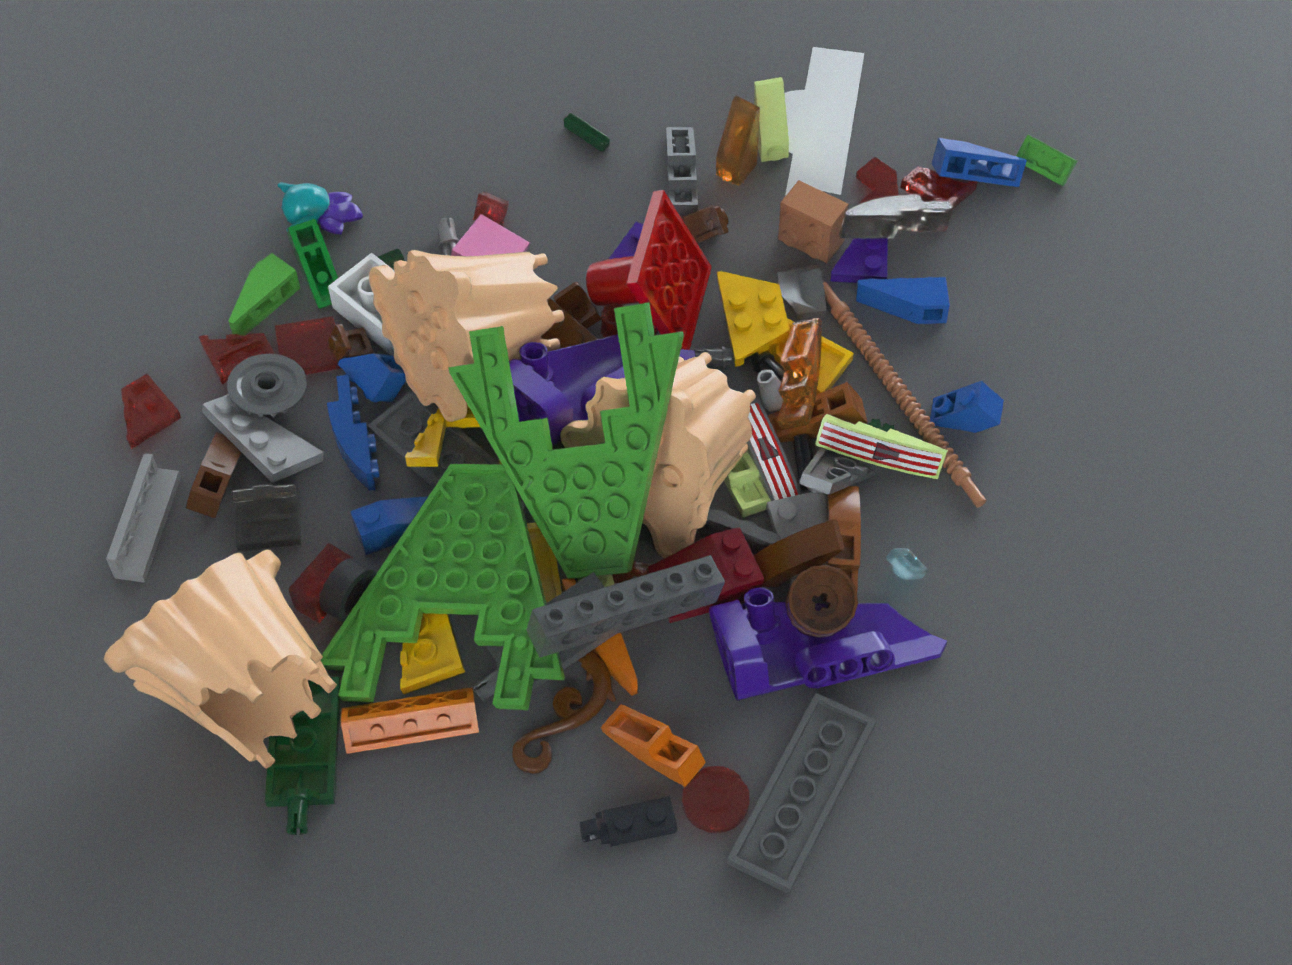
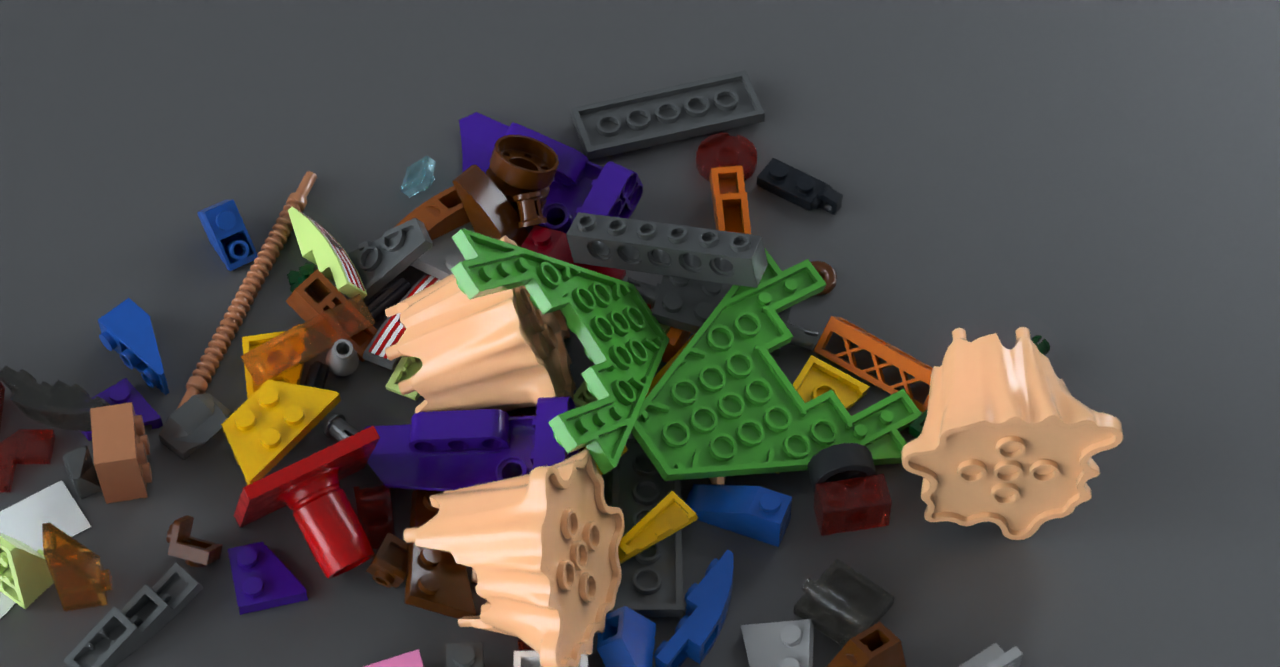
camera: 135 degrees left, 5 degrees down
(782, 565) = (529, 209): none -> reddish brown bush

